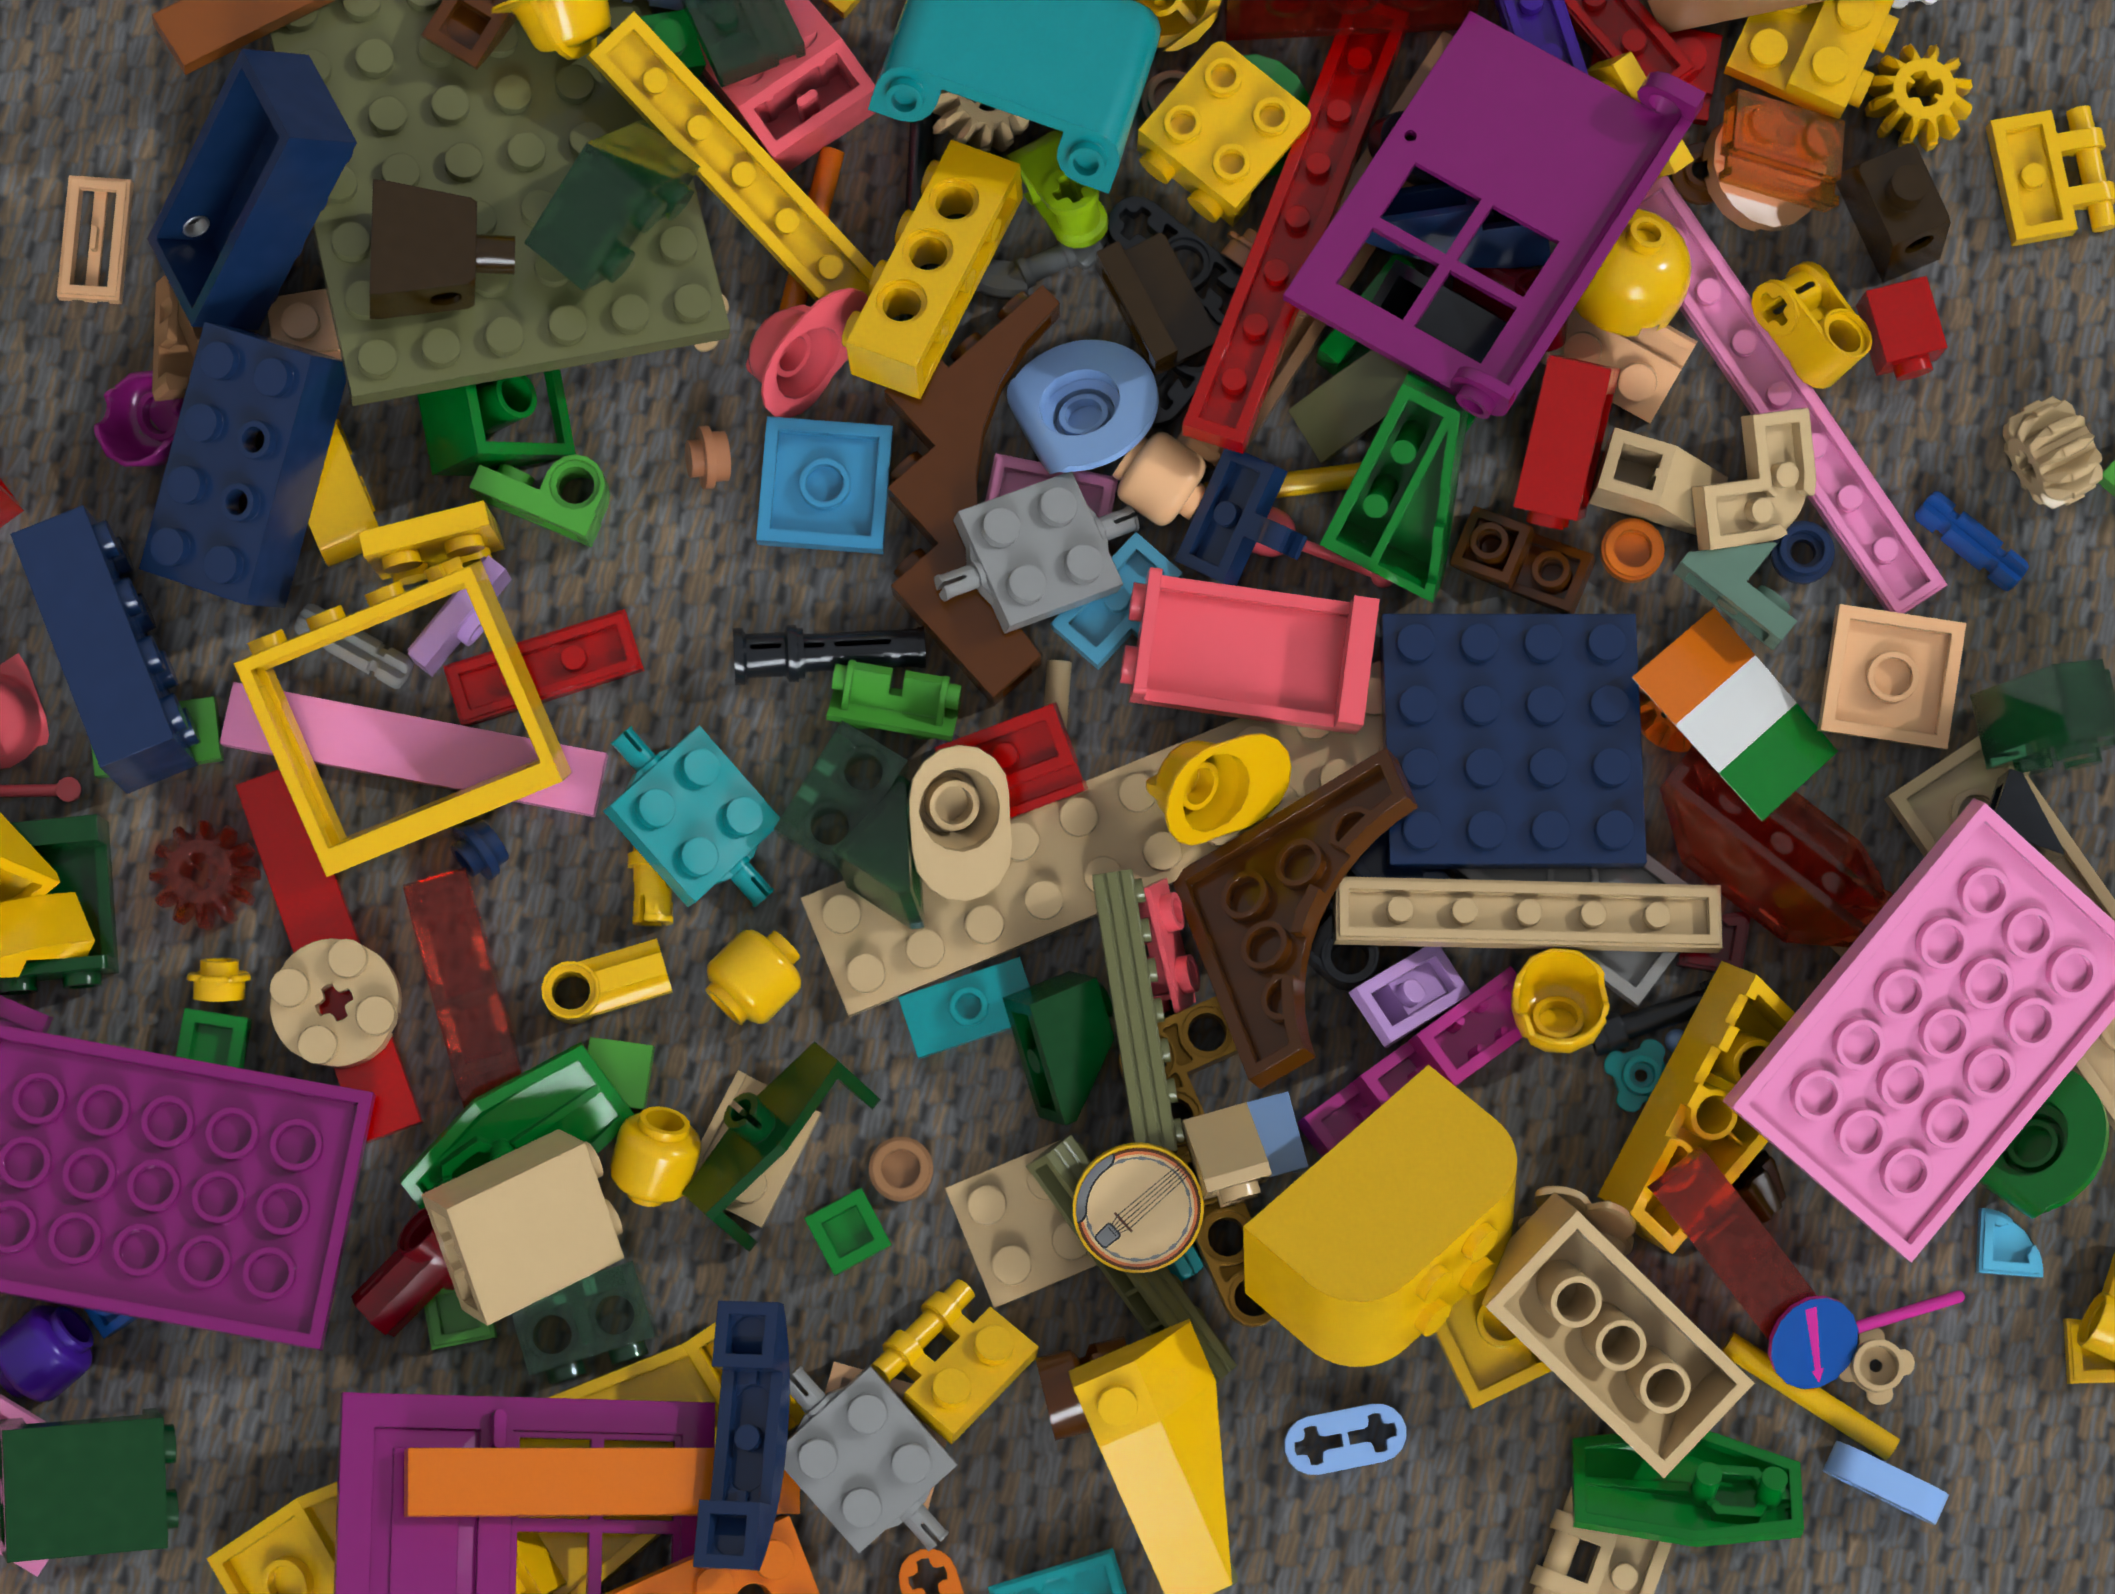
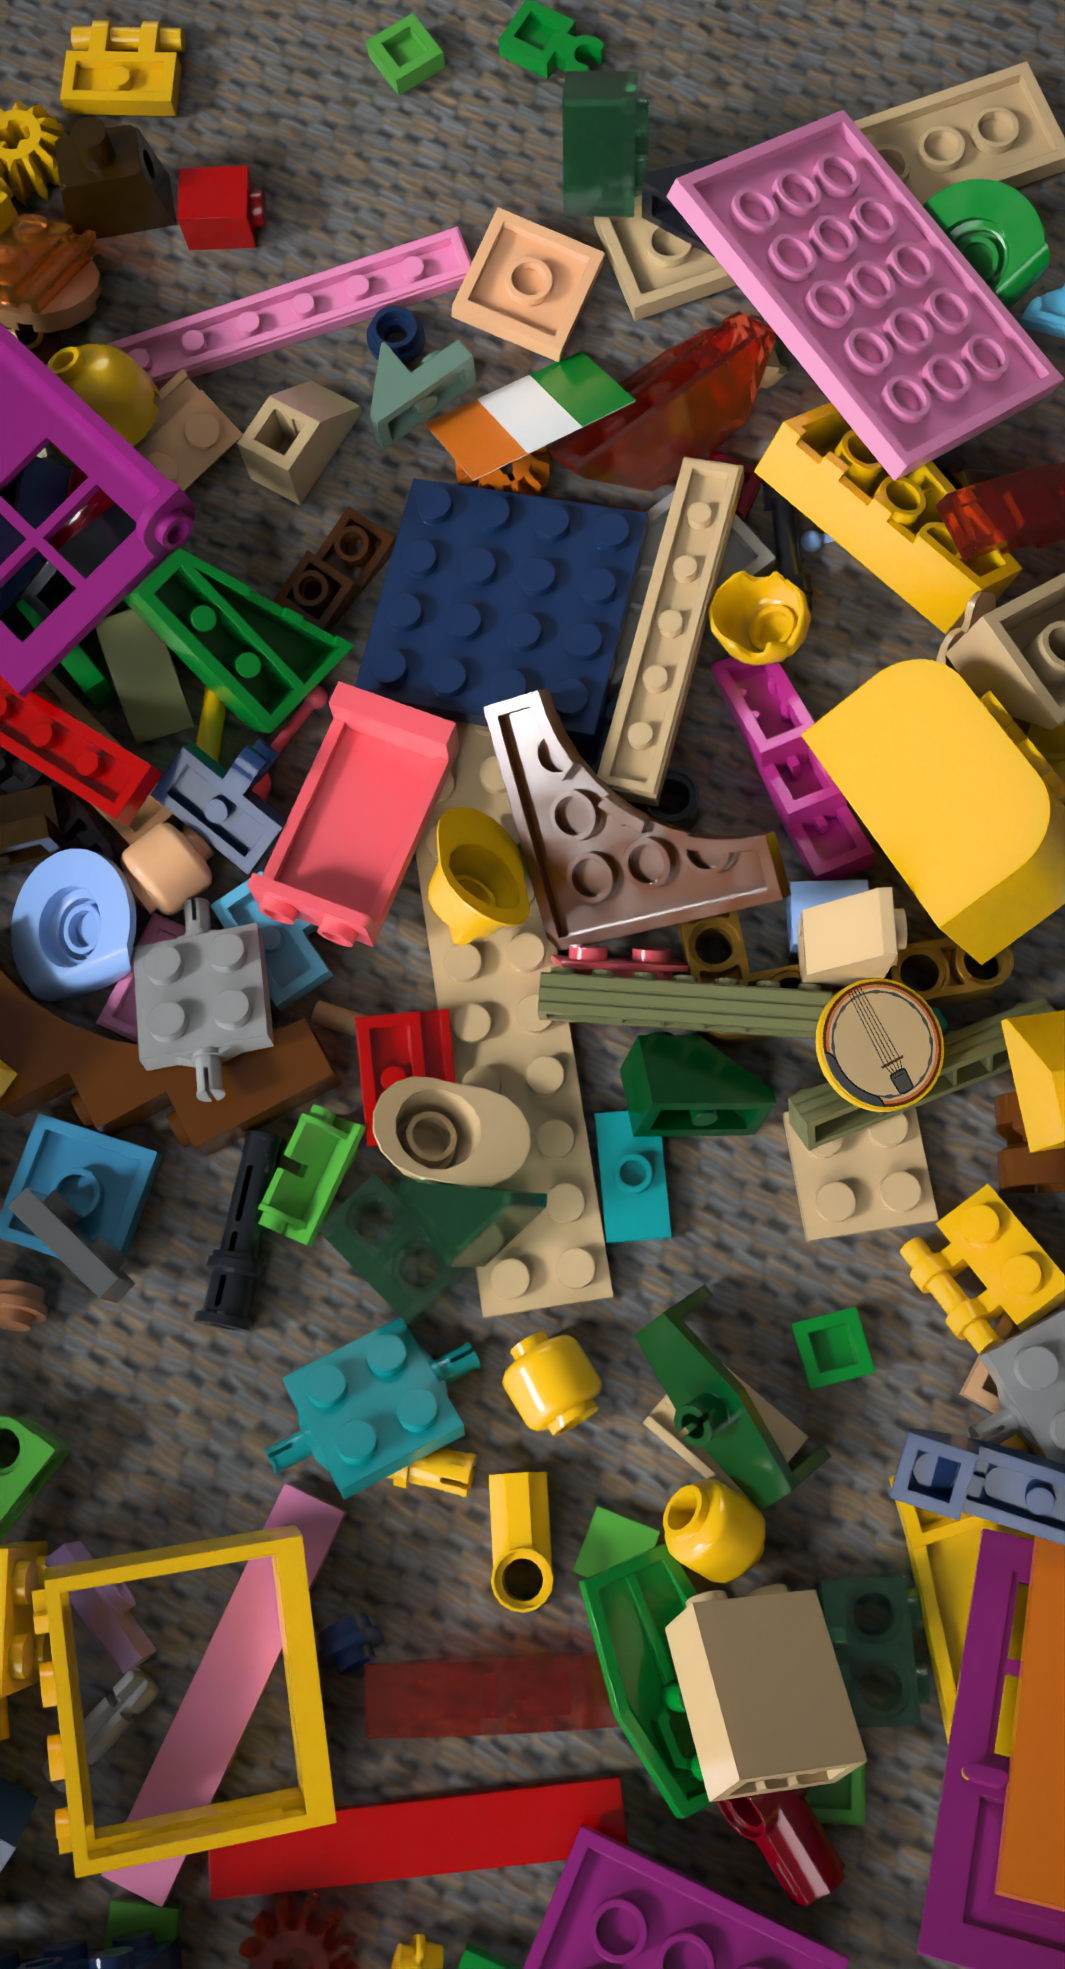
camera: 65 degrees left, 5 degrees down
(300, 990) = (449, 1881): tan plate -> none
(557, 663) = (176, 1513): red tile -> none
(762, 521) = (93, 1262): none -> dark grey plate
(901, 1169) = (778, 1281): medium nougat tile -> none
(1409, 994) = (721, 759): lavender slope -> none
(1565, 441) = (237, 485): red window -> none
(1623, 1068) = (830, 589): teal plate -> none
(1632, 550) = (353, 477): orange tile -> none
(1777, 482) = (321, 330): tan plate -> none
(1816, 327) = (203, 275): yellow piece -> none
(1971, 541) = (424, 200): blue axle -> none
(2052, 452) = (365, 107): tan gear -> none

